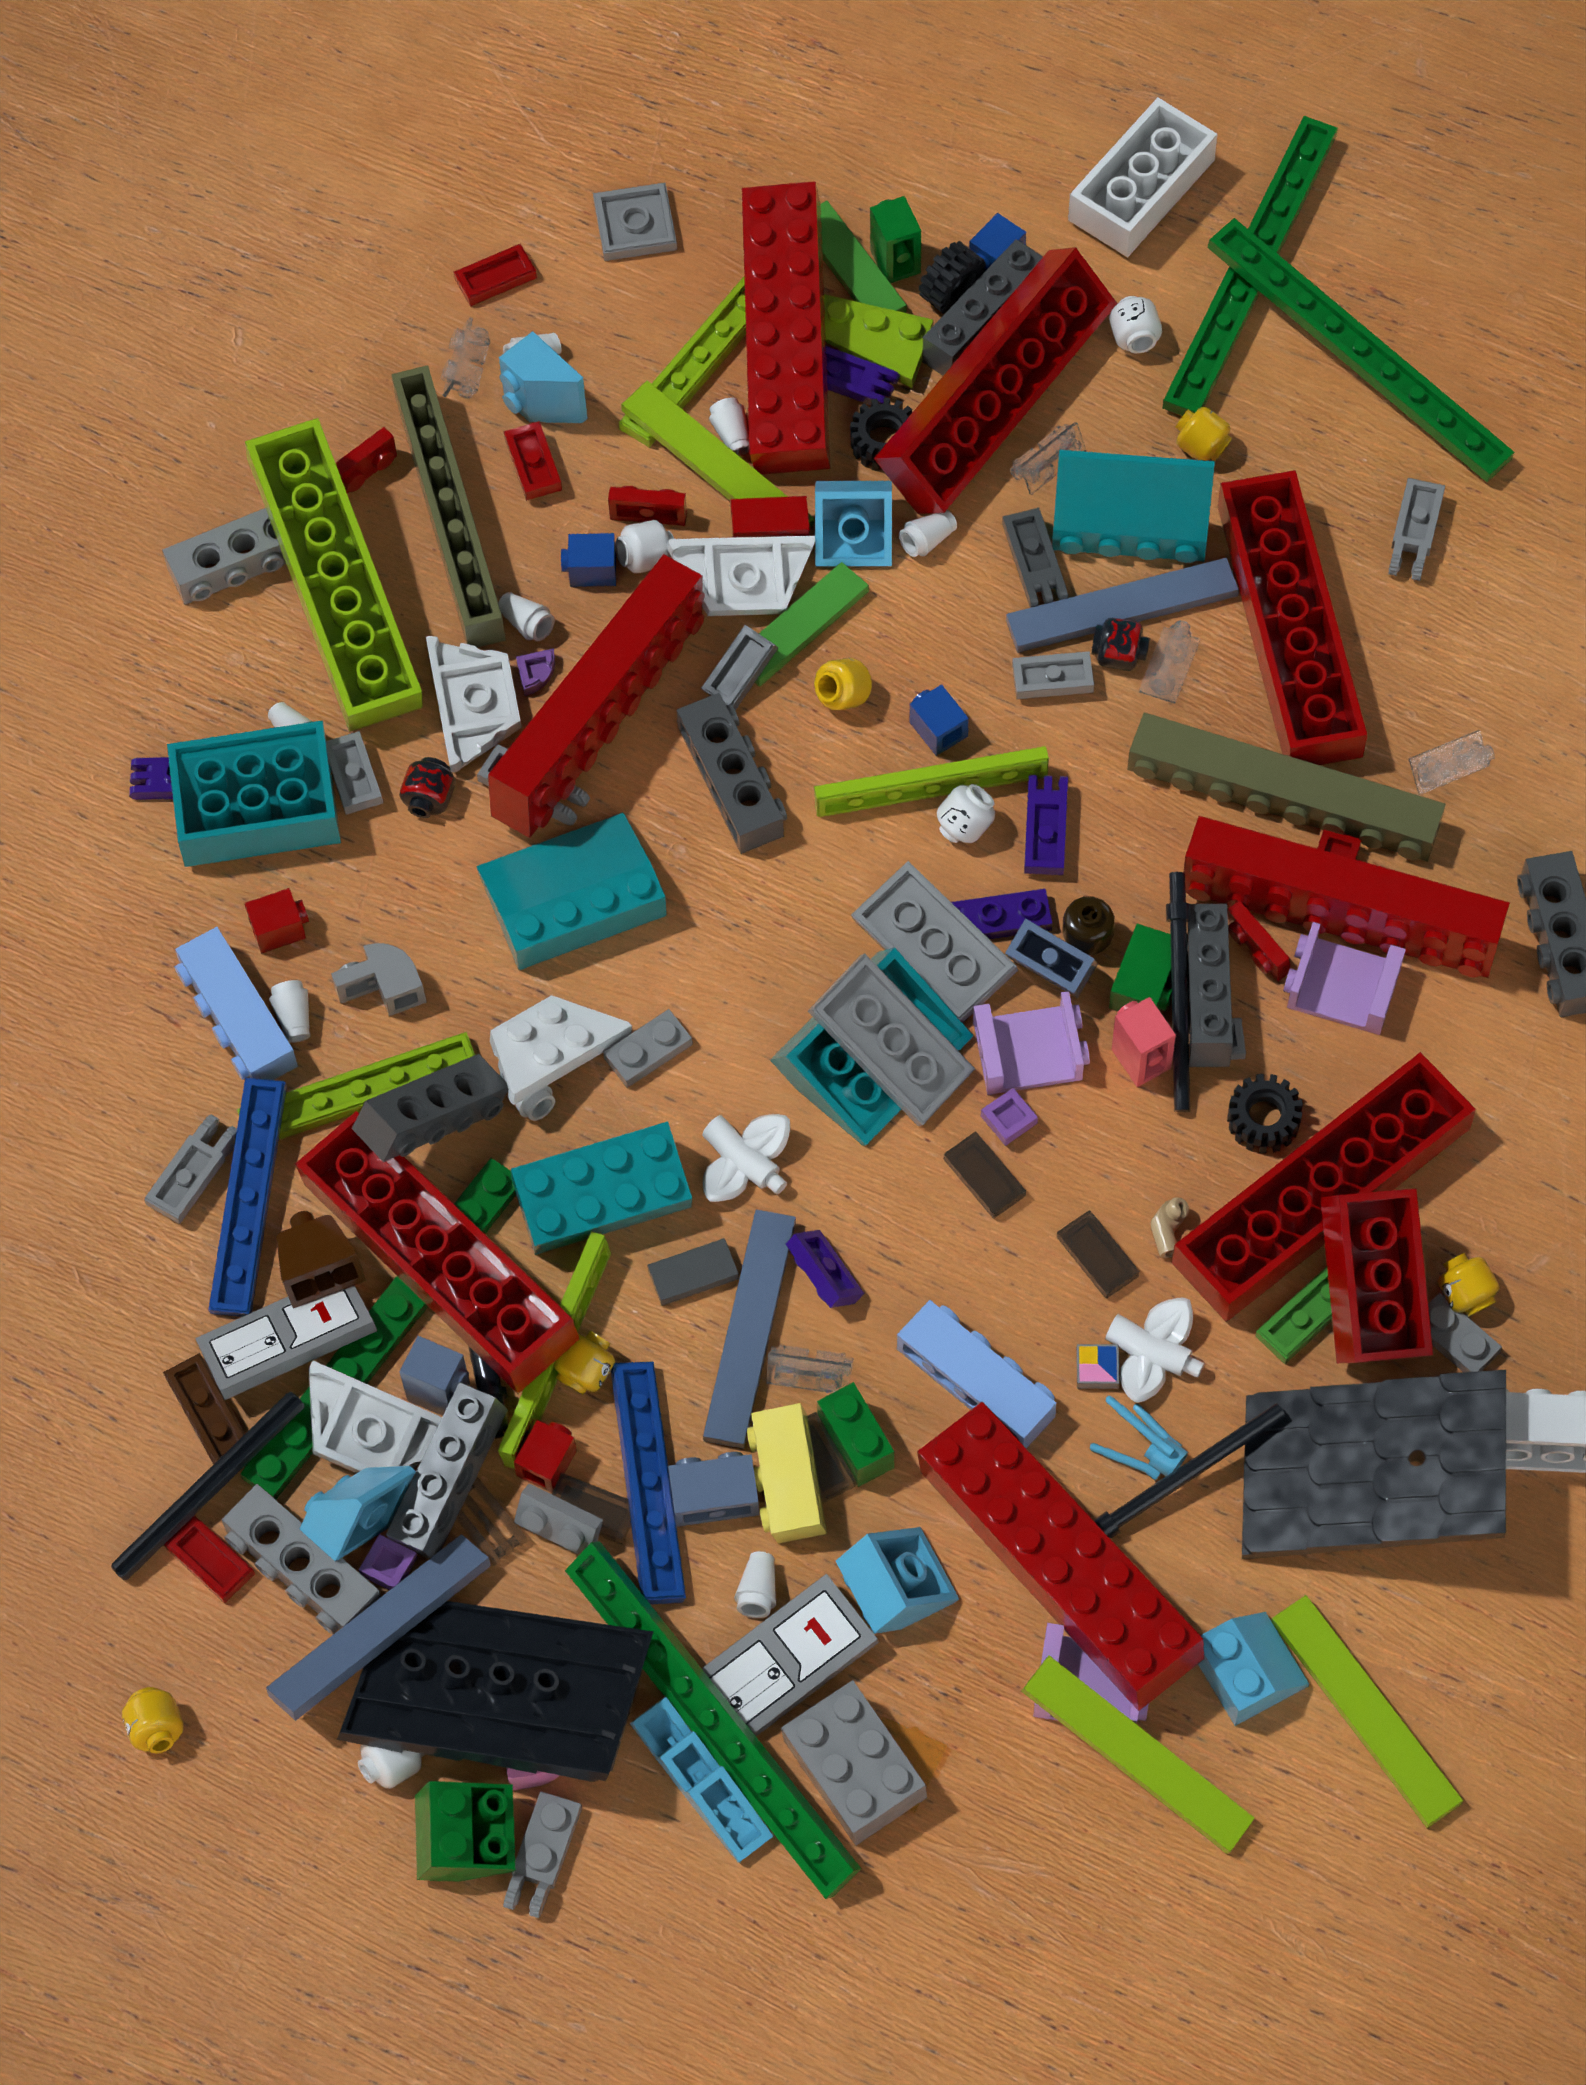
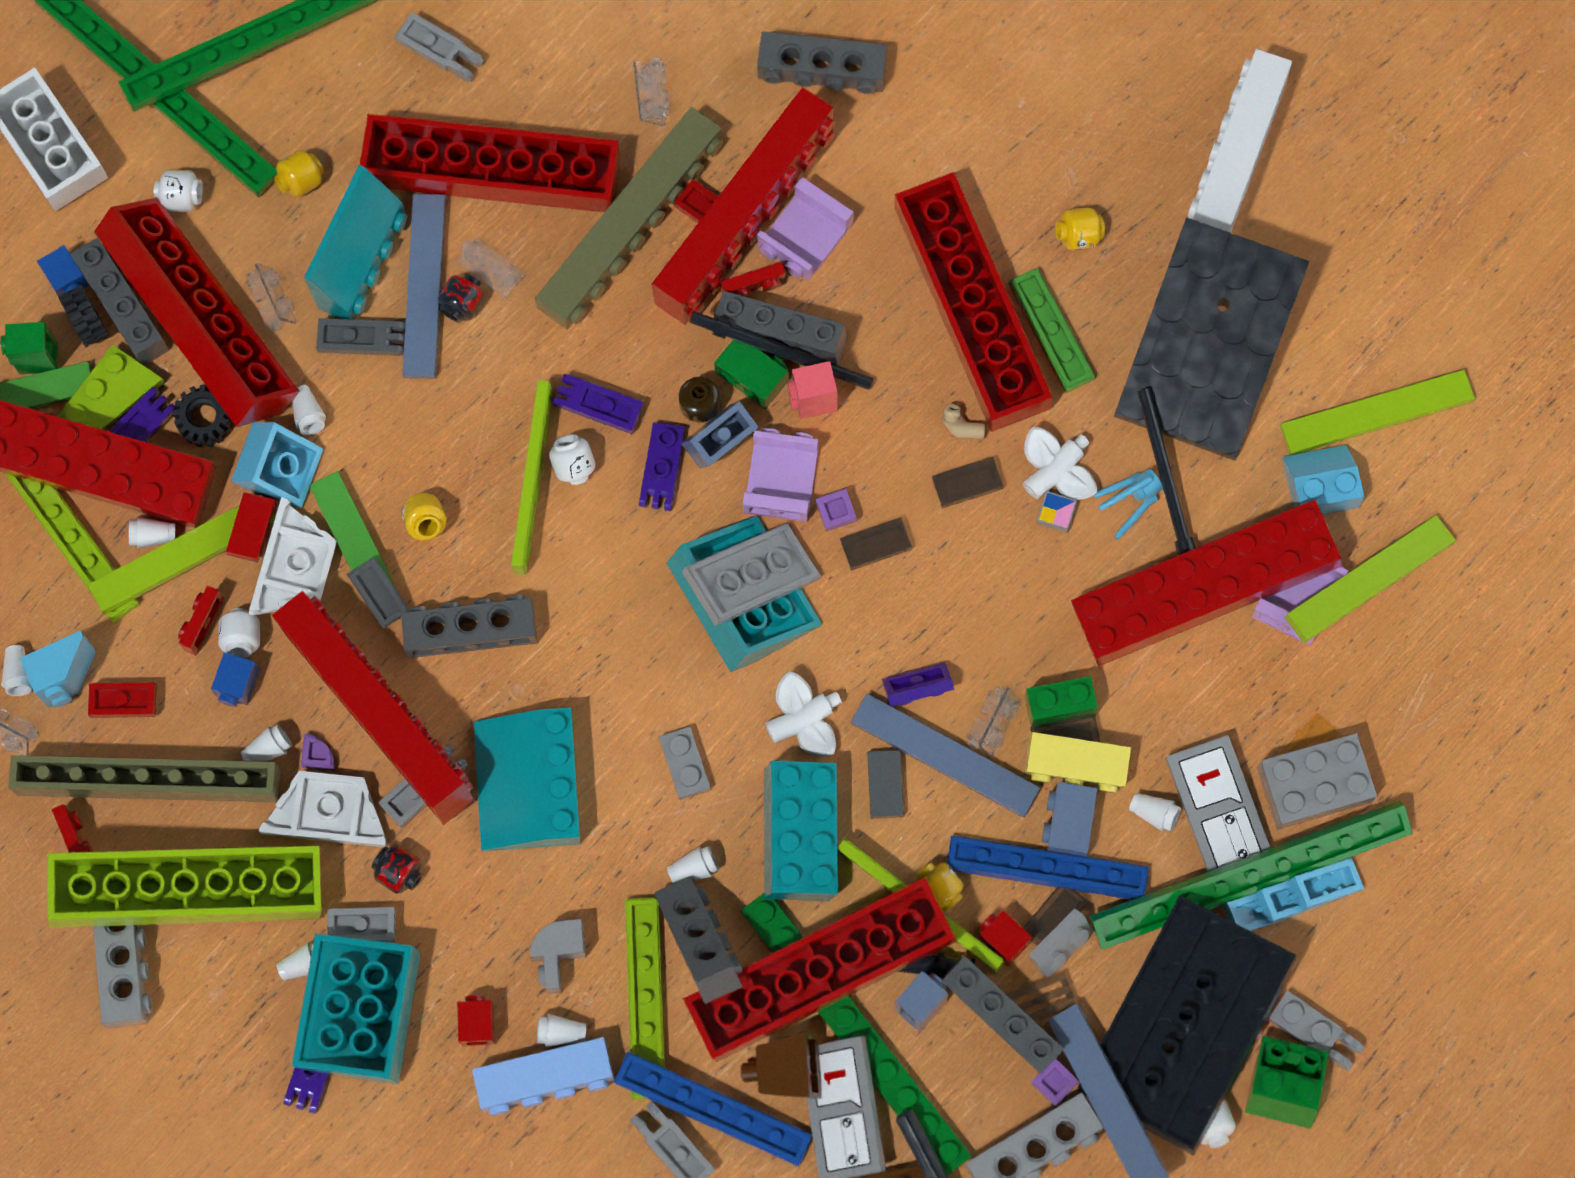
camera: 70 degrees left, 10 degrees up
(355, 1509) = (1010, 1091): medium azure slope -> none
(364, 1425) = (941, 1065): white wing -> none
(550, 1043) = (661, 835): white wing -> none
(896, 1578) = (1183, 708): medium azure slope -> none
(935, 940) = (669, 517): light grey tile -> none
(938, 719) = (478, 455): blue brick -> none
(974, 1372) = (1038, 600): light blue brick -> none
(1053, 675) = (469, 357): light grey plate -> none
(1271, 1092) = (901, 307): black tyre -> none
(1376, 1276) = (1064, 286): red brick -> none
(1460, 1337) = (1113, 252): light grey plate -> none

